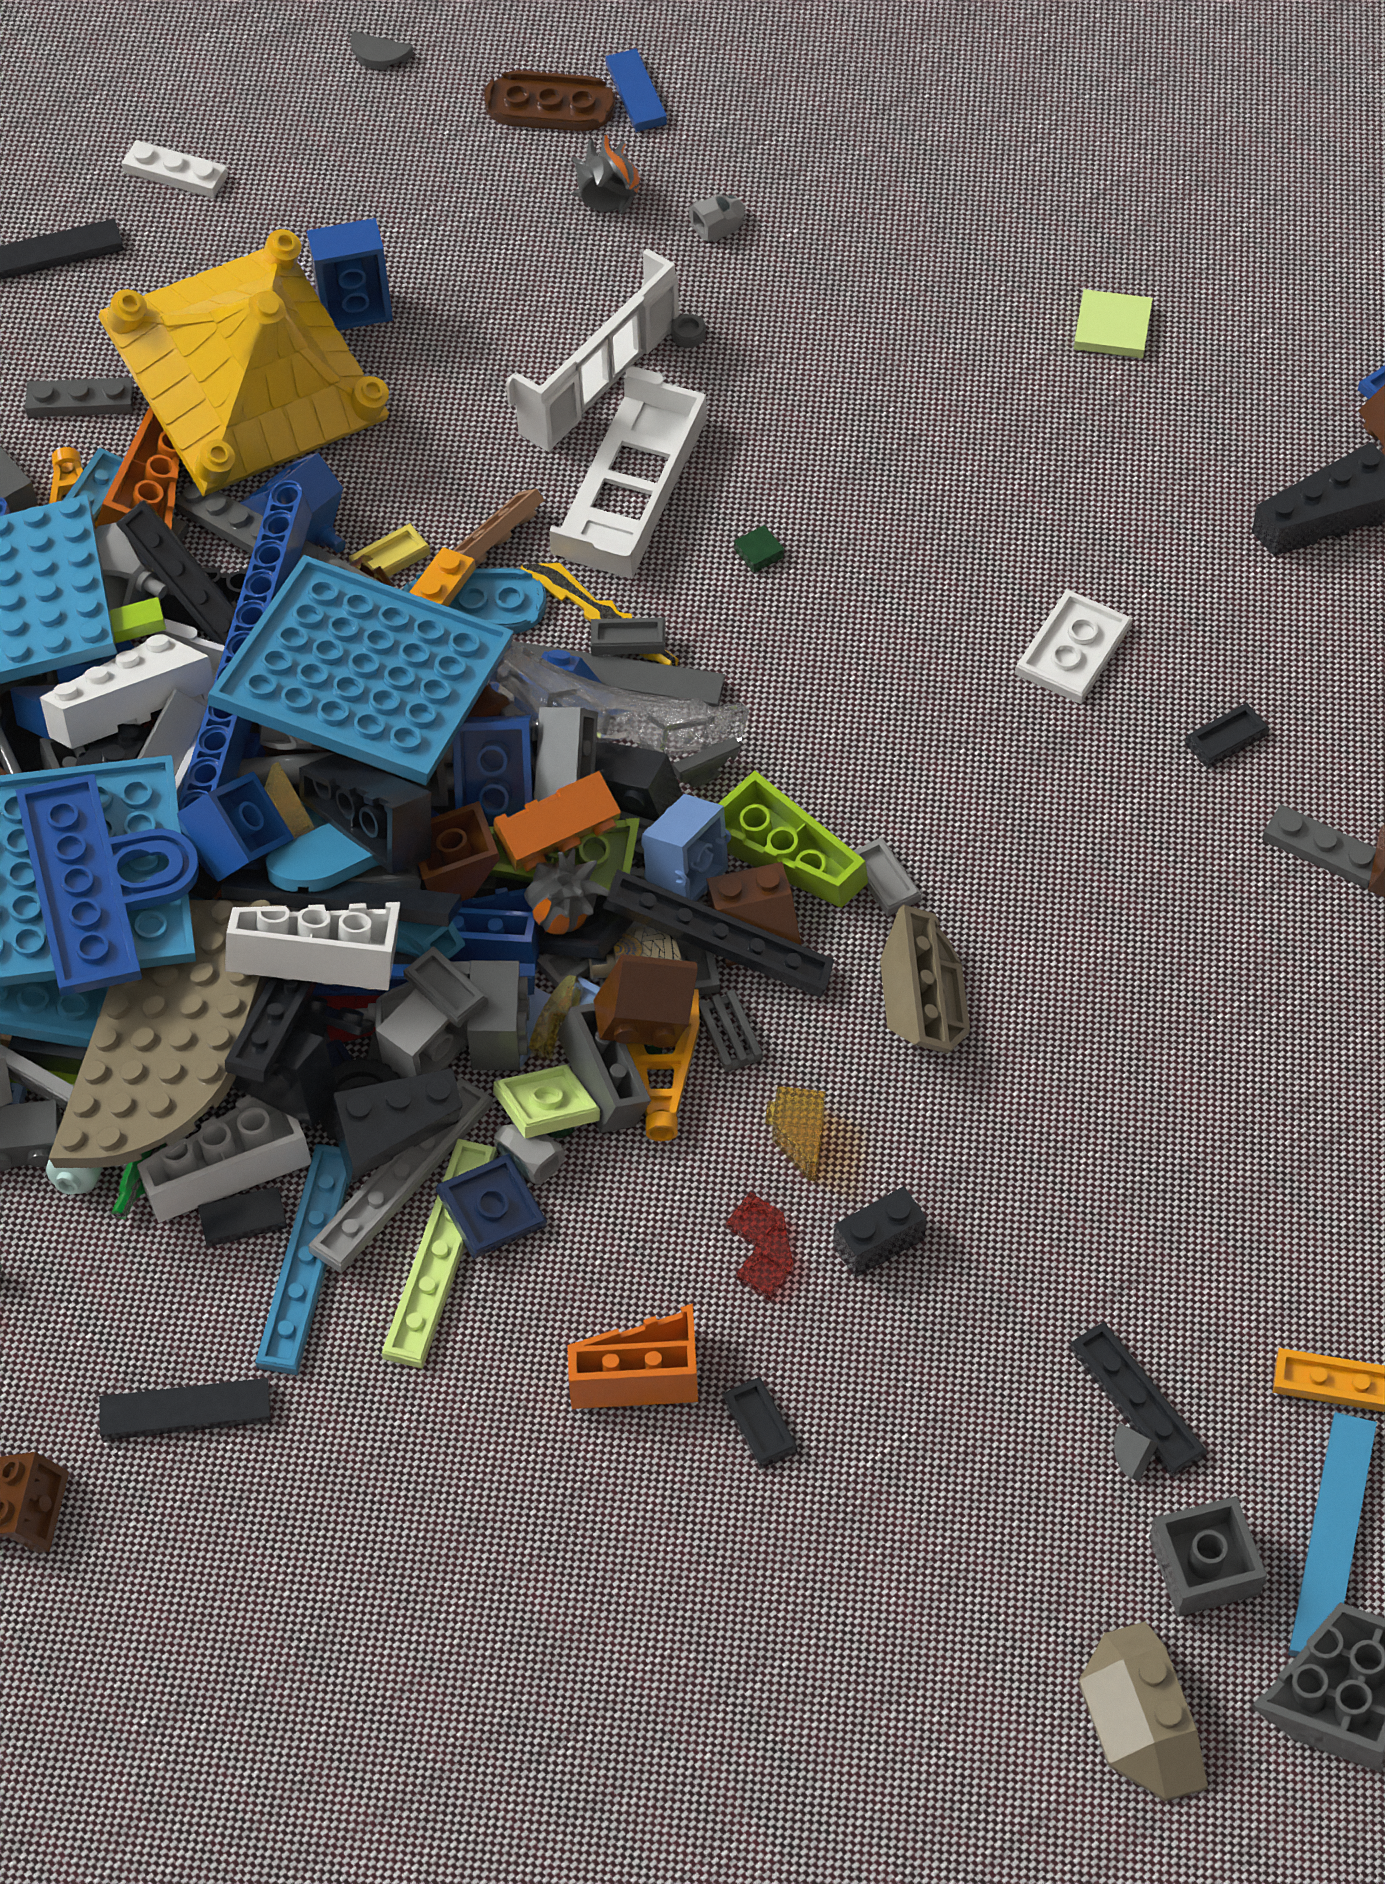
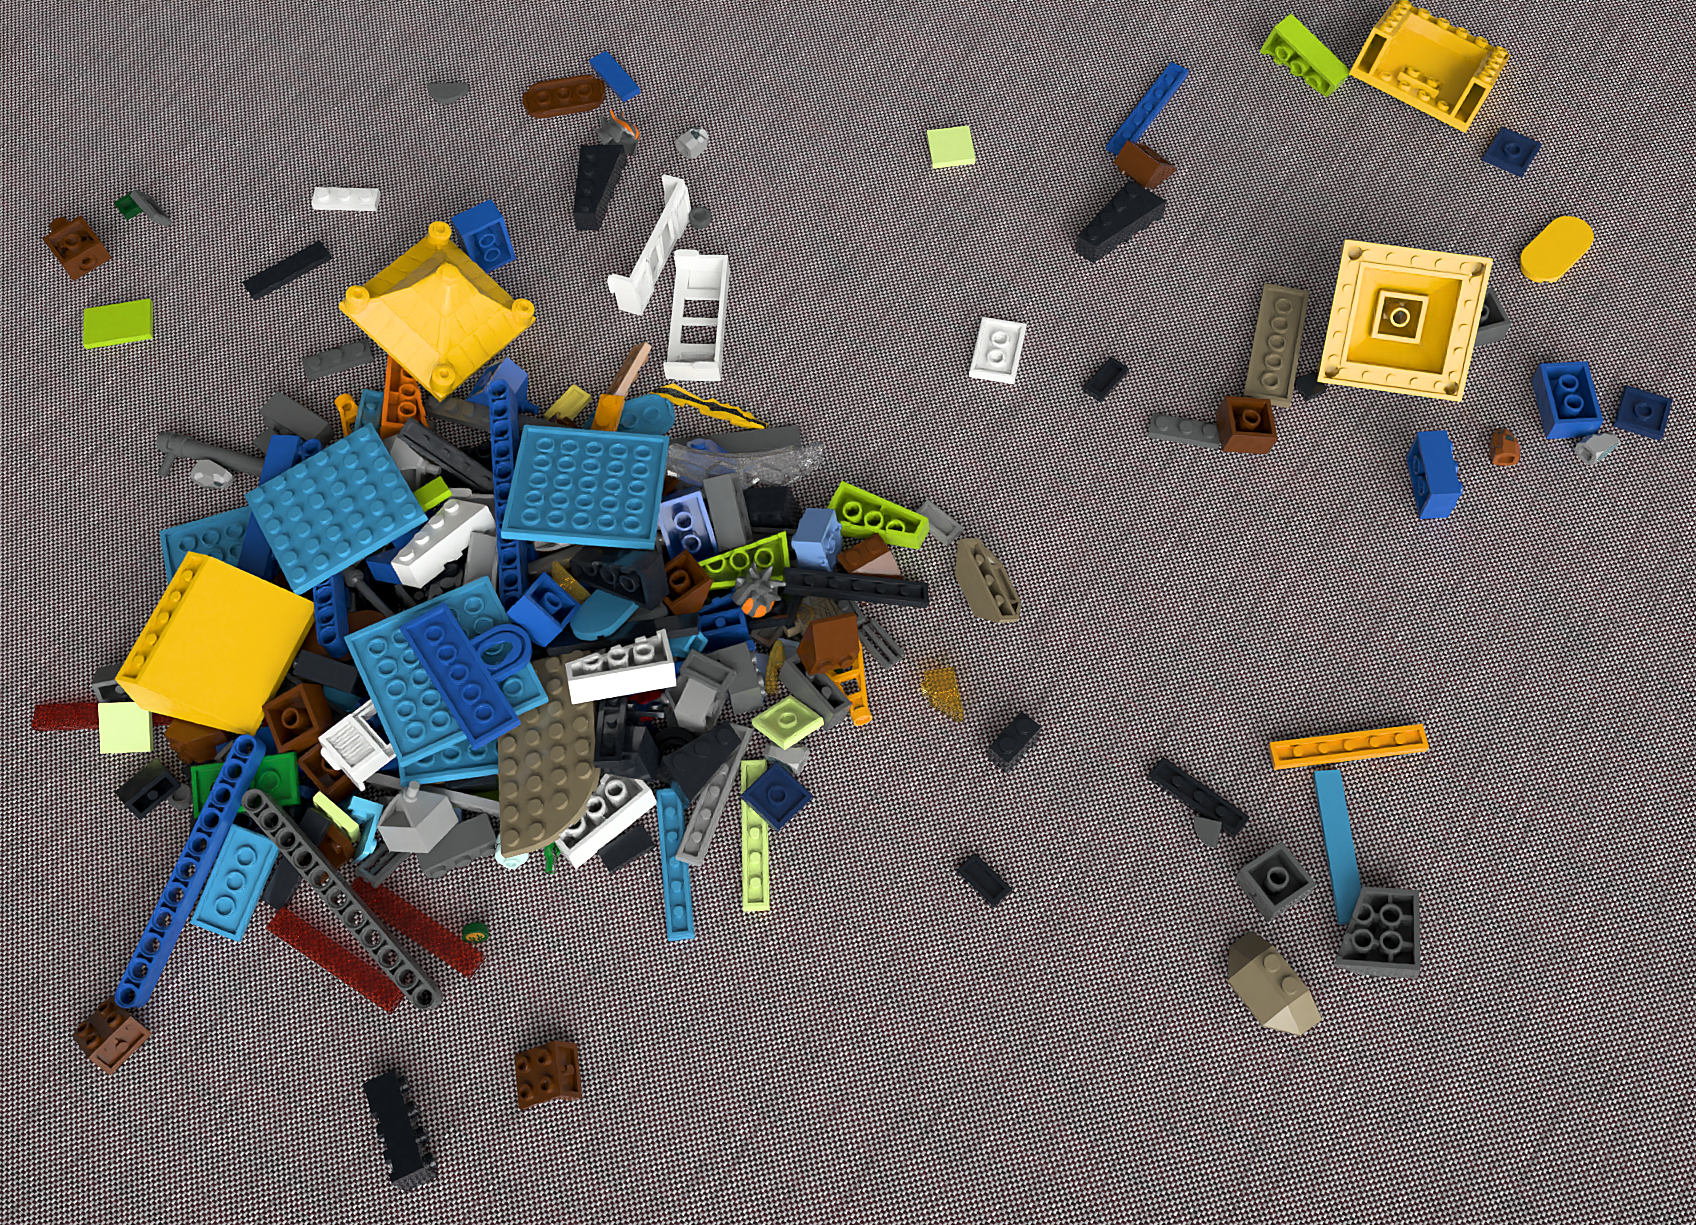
camera: 15 degrees left, 5 degrees up
(184, 1409) = (634, 981): black tile -> none
(548, 239) = (596, 178): none -> black wedge
(557, 822) = (739, 549): orange wedge -> none
(628, 636) = (732, 417): dark grey tile -> none
(636, 1365) = (901, 869): orange wedge -> none
(704, 765) = (806, 486): dark grey tile -> none
(759, 549) = (790, 341): dark green tile -> none
(766, 1230) = (945, 760): clear red tile -> none

